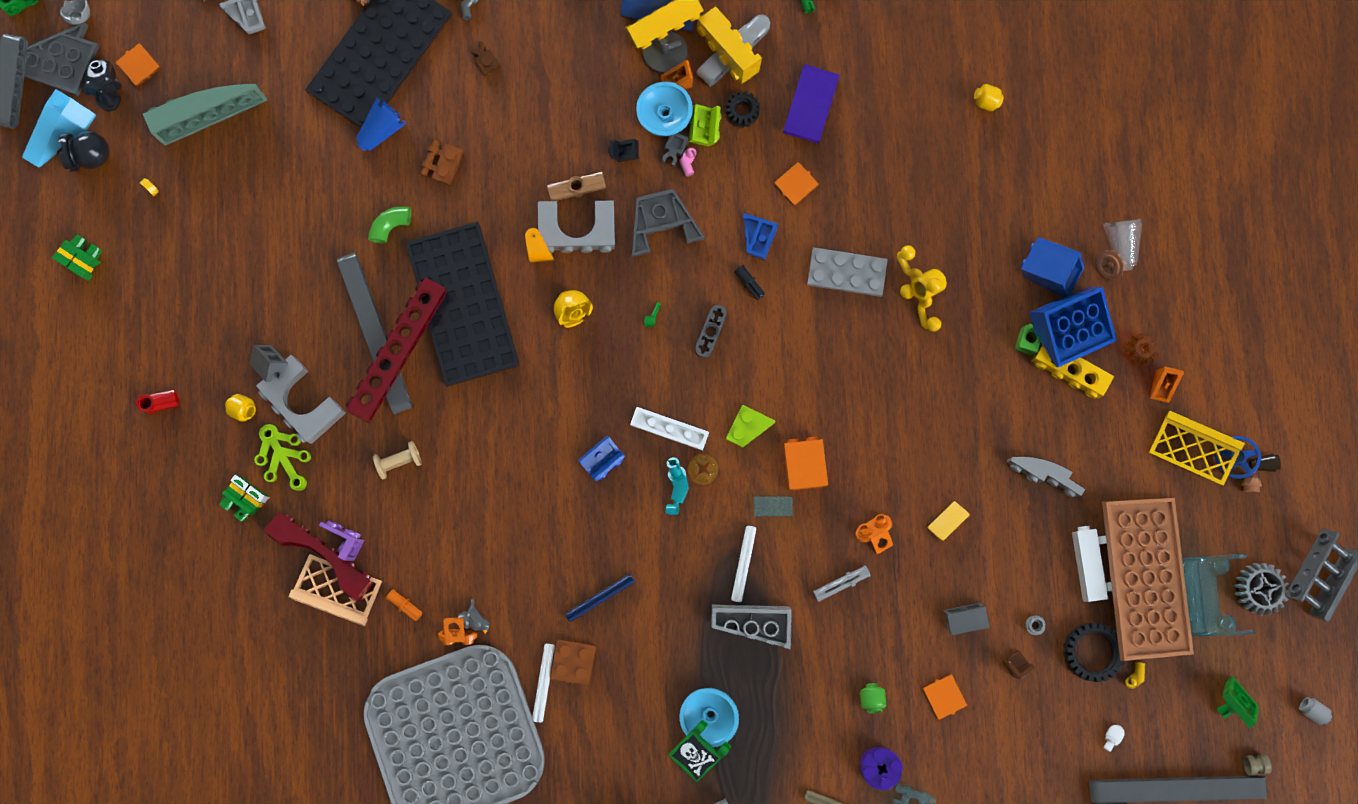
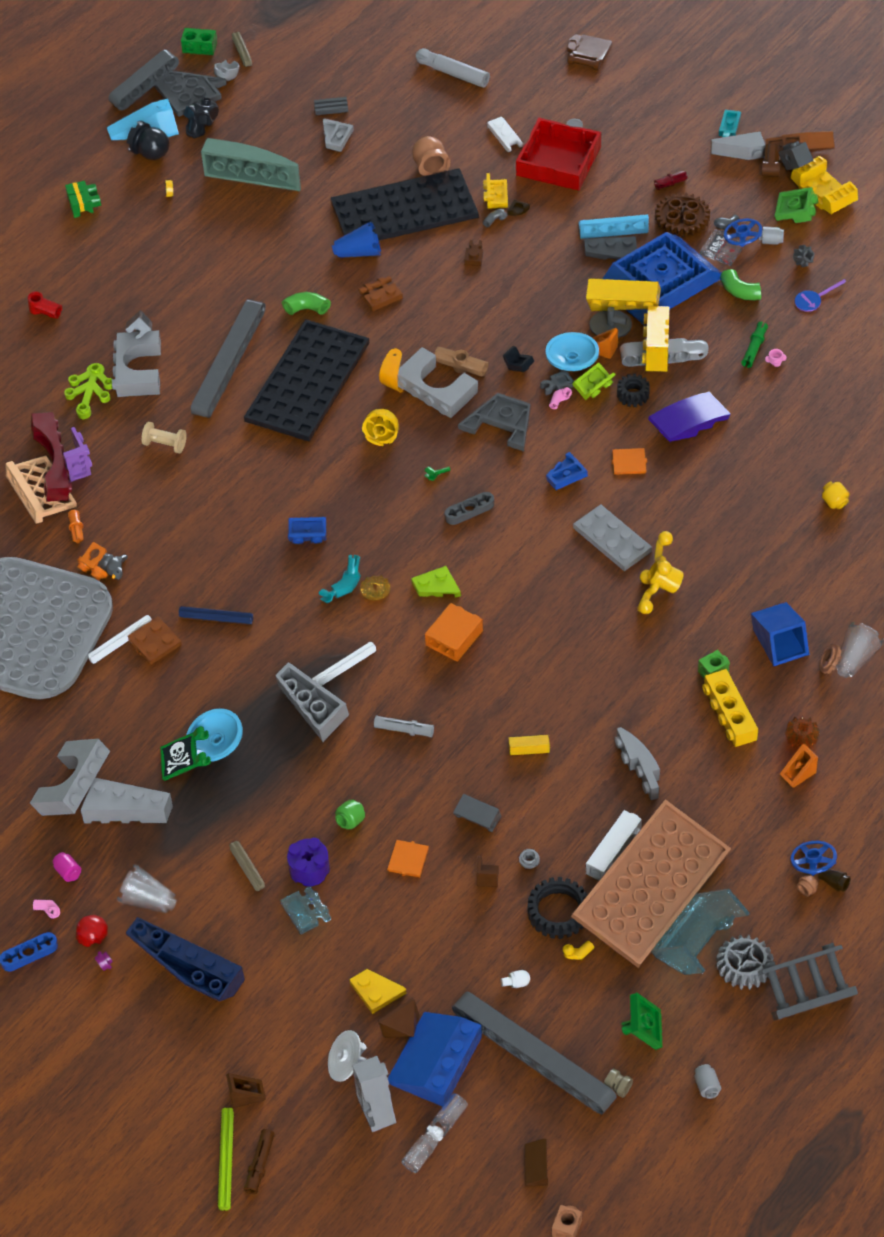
camera: 45 degrees right, 30 degrees down
(138, 64) = (235, 123): orange piece -> none
(240, 407) = (93, 342): yellow head -> none
(245, 496) = (41, 394): green hips -> none
(367, 411) = (231, 369): dark red brick -> none
(669, 428) = (376, 545): white plate -> none
(749, 282) = (530, 495): black axle -> none
(773, 506) = (403, 645): clear light blue tile -> none
(874, 530) = (458, 706): orange bracket -> none
(1074, 325) = (758, 672): blue slope -> none
(1203, 432) = (799, 819): yellow fence -> none

